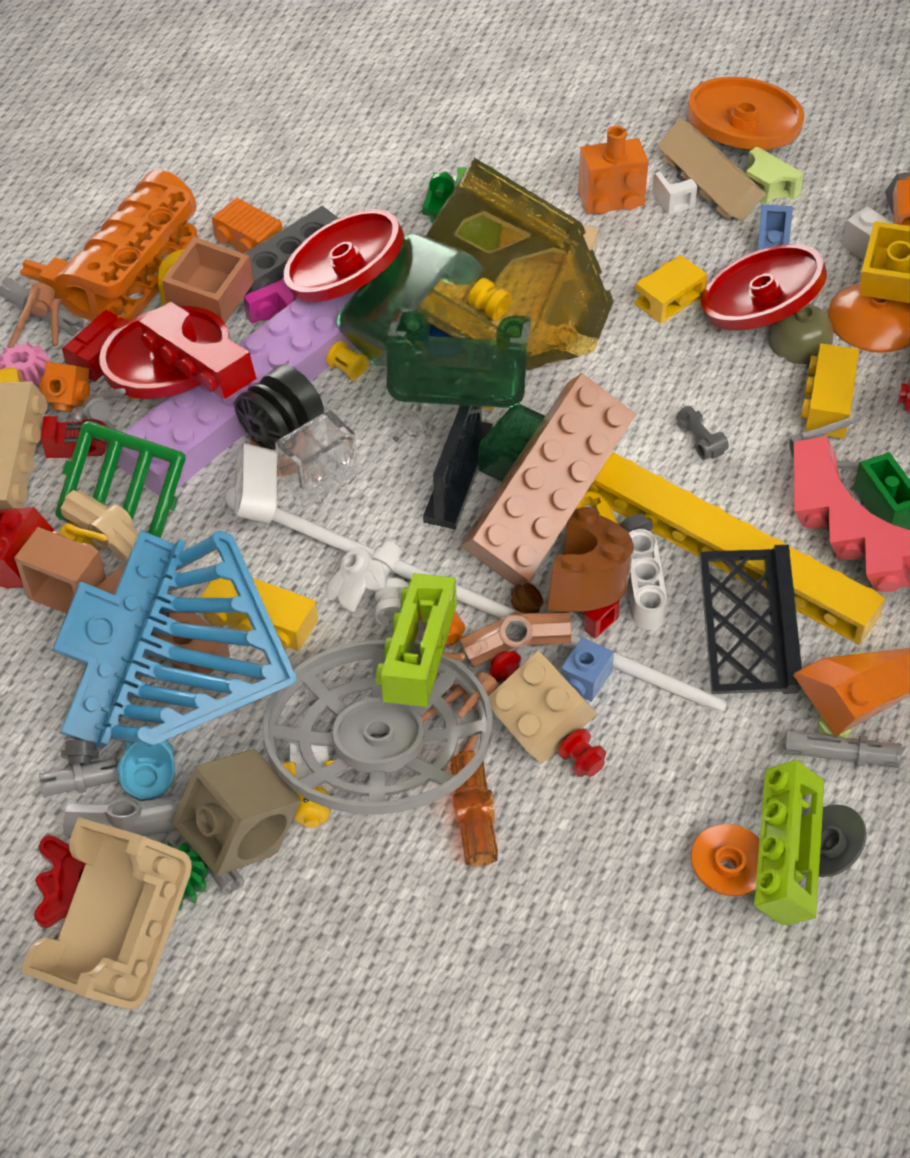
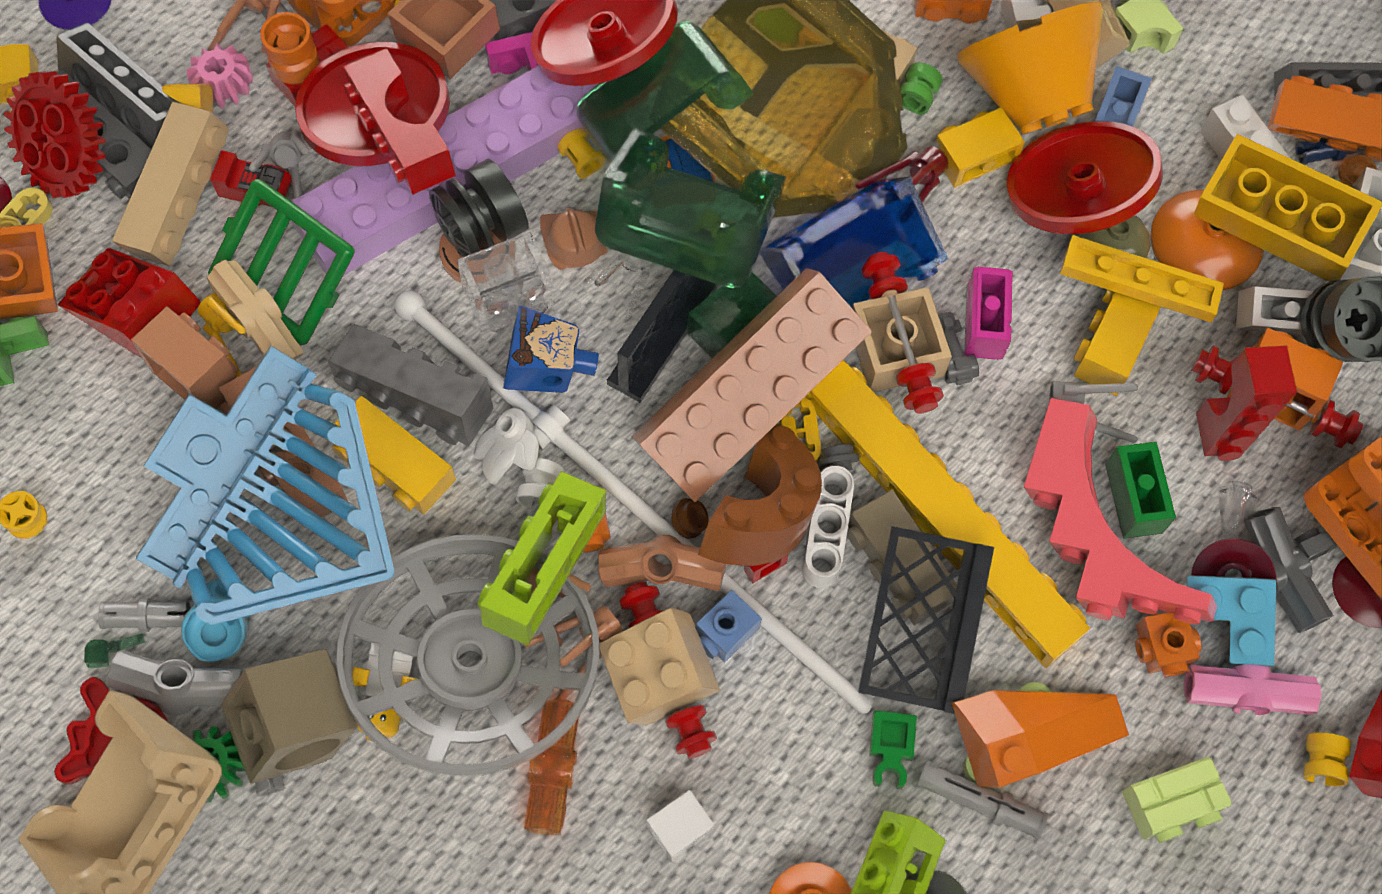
camera: 10 degrees right, 15 degrees up
(46, 815) = (97, 650): none -> clear green hand
(65, 385) = (257, 112): orange brick -> none
(79, 752) = (151, 586): dark grey plate -> none
(83, 325) = (289, 47): none -> orange wheel
(256, 483) = (427, 299): white beam -> none
(273, 552) = (412, 385): none -> flat silver wedge
(365, 419) = (571, 238): none -> nougat piece
(366, 505) = (545, 354): none -> torso
(490, 299) = (764, 113): yellow wheel -> none
(595, 824) = (679, 825): none -> white panel
(610, 256) = (920, 86): none -> bright green wheel
(615, 356) = (841, 238): none -> clear blue windscreen
(632, 313) = (924, 170): none -> dark red plant
(662, 431) = (905, 338): none -> tan brick
(683, 576) = (870, 531): none -> dark tan brick
(701, 216) = (1041, 69): none -> light orange cone
(721, 397) = (988, 313): none -> dark pink brick
(754, 723) = (892, 741): none -> green plate
(835, 343) = (1142, 278): none -> yellow plate

